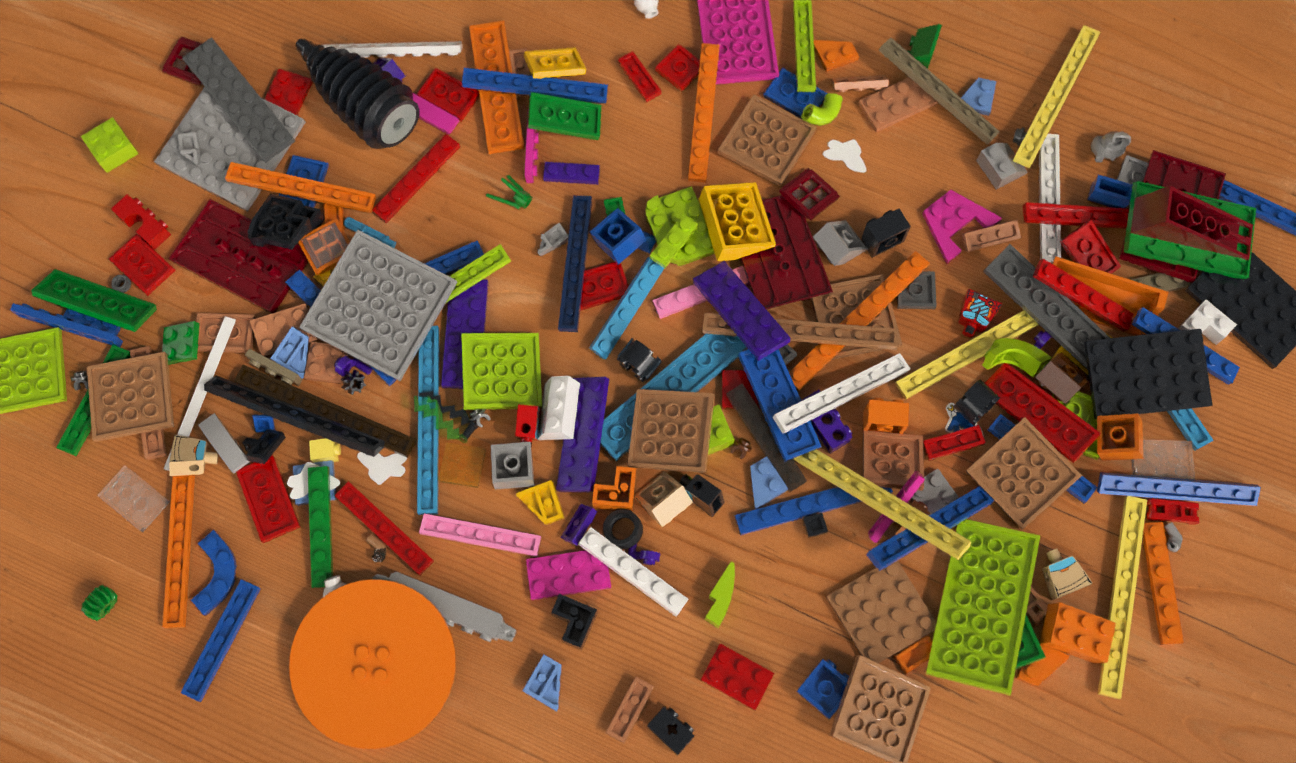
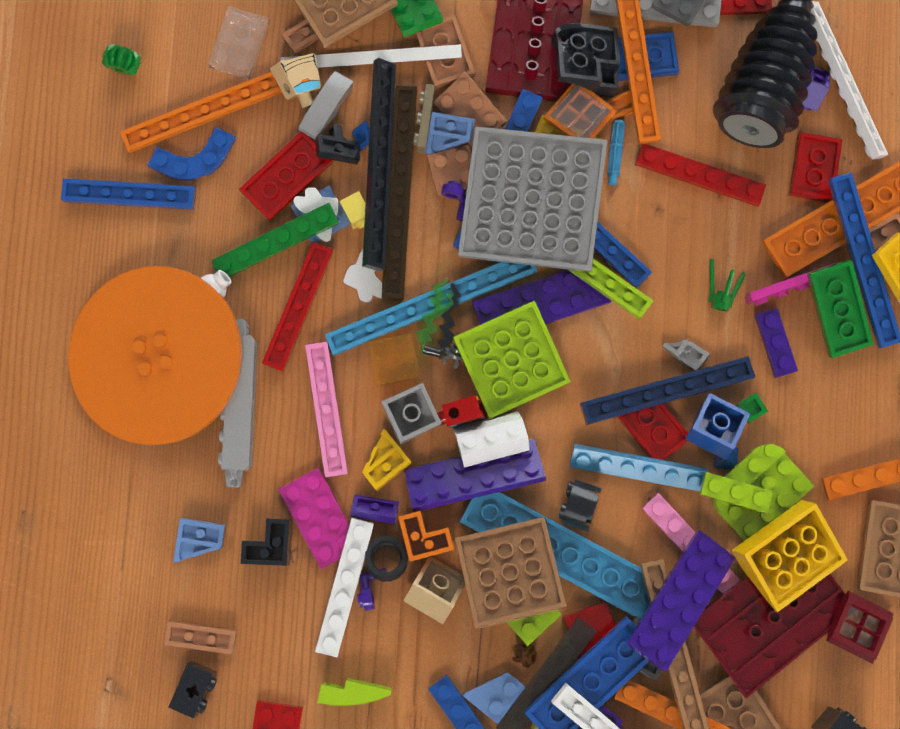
camera: 65 degrees right, 10 degrees up
(353, 382) = (440, 208): black gear -> none
(379, 548) = (274, 312): arm -> none
(435, 116) = (784, 161): dark pink tile -> none
(703, 493) = (452, 640): black torso -> none
(839, 242) = (813, 683): light grey slope -> none

